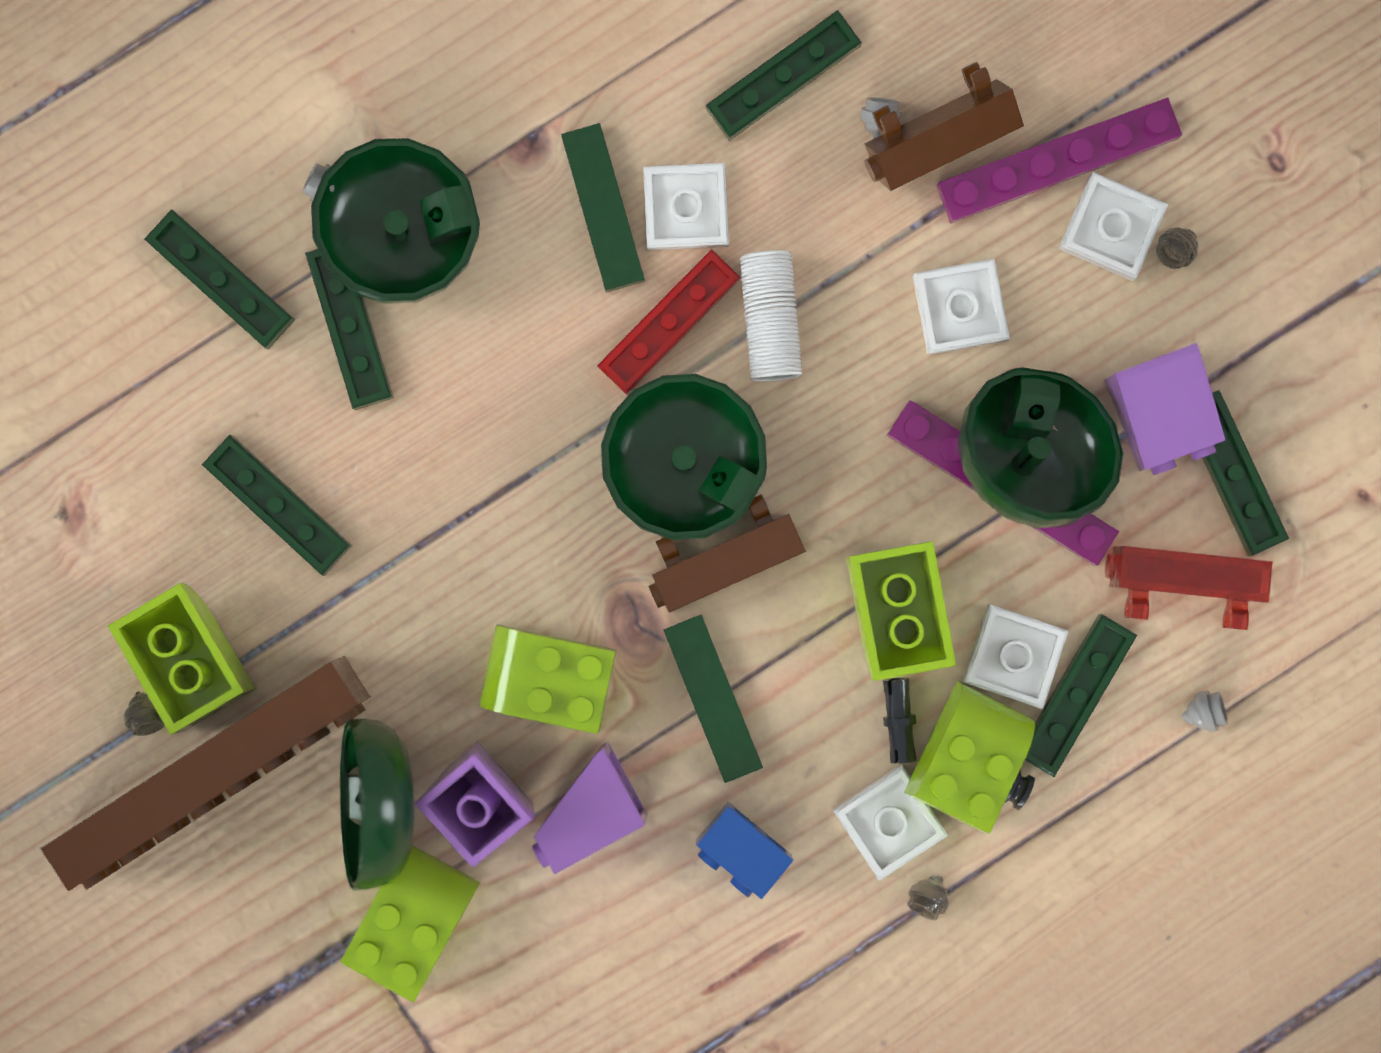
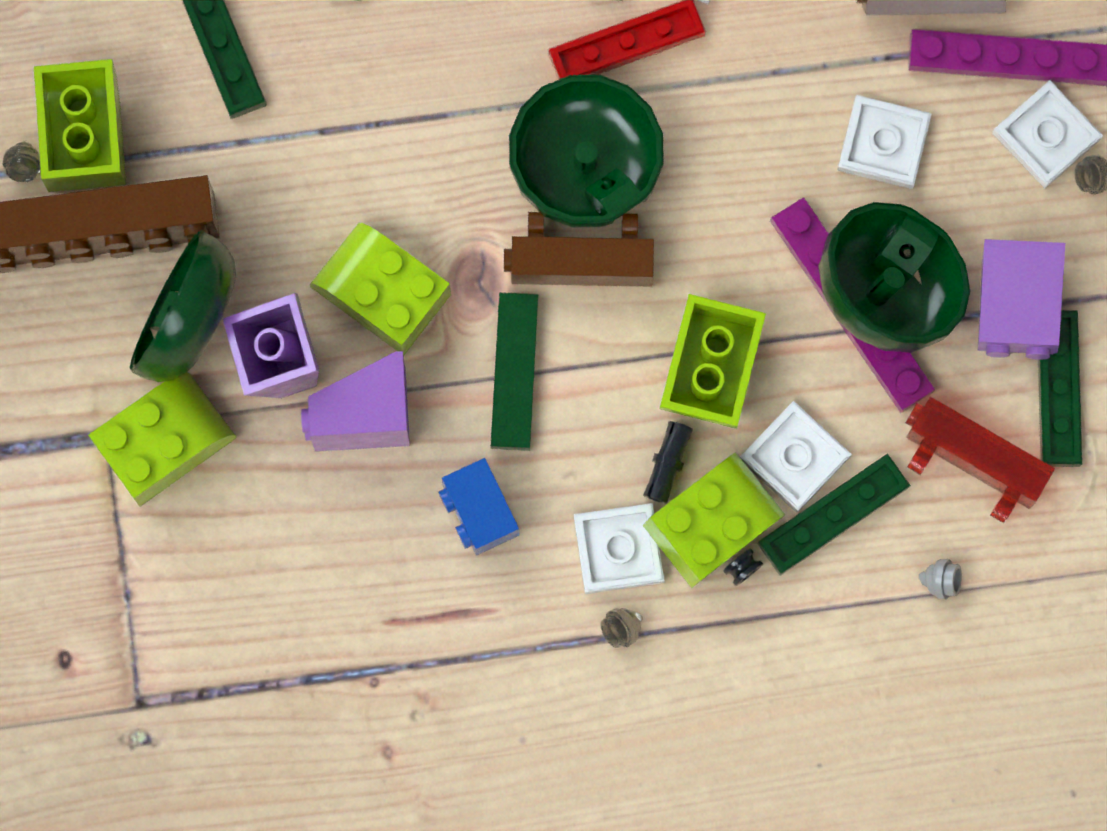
camera: 20 degrees right, 10 degrees down
(771, 331) = (715, 79): white piece -> none

